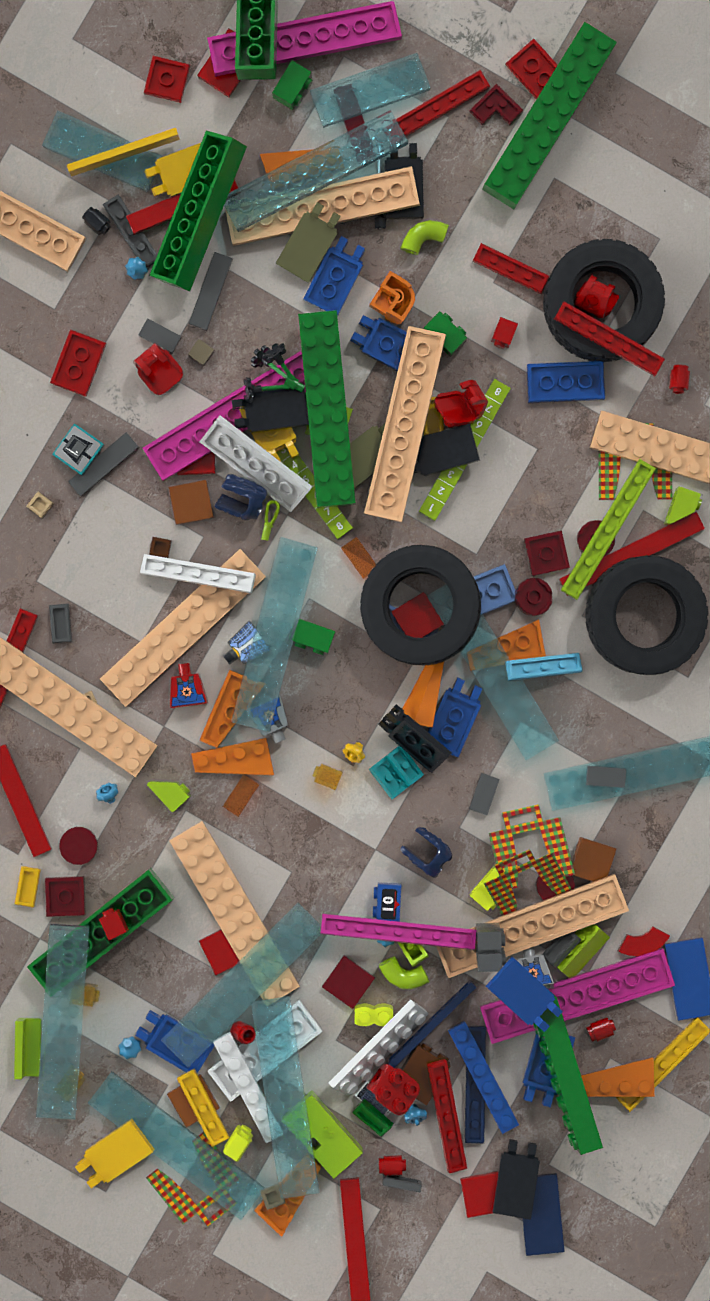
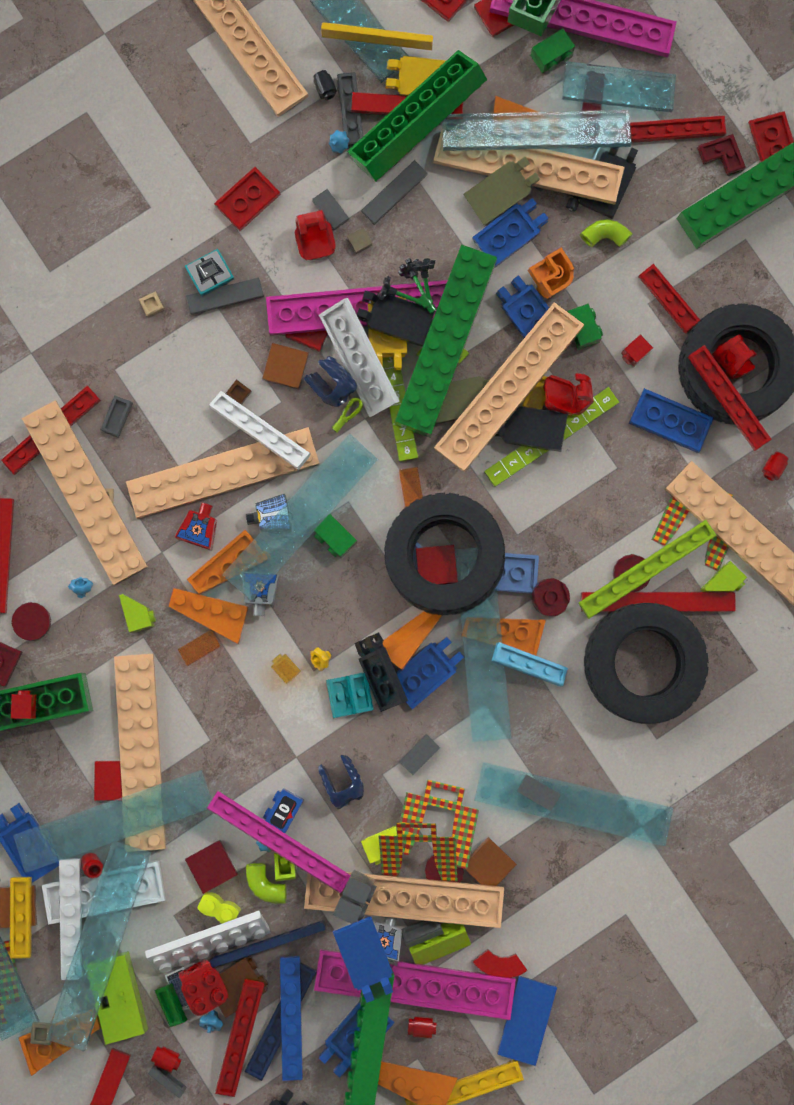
camera: 25 degrees right, 5 degrees down
(238, 1142) = (35, 966): neon yellow brick -> none
(546, 553) = (581, 564): dark red tile -> none

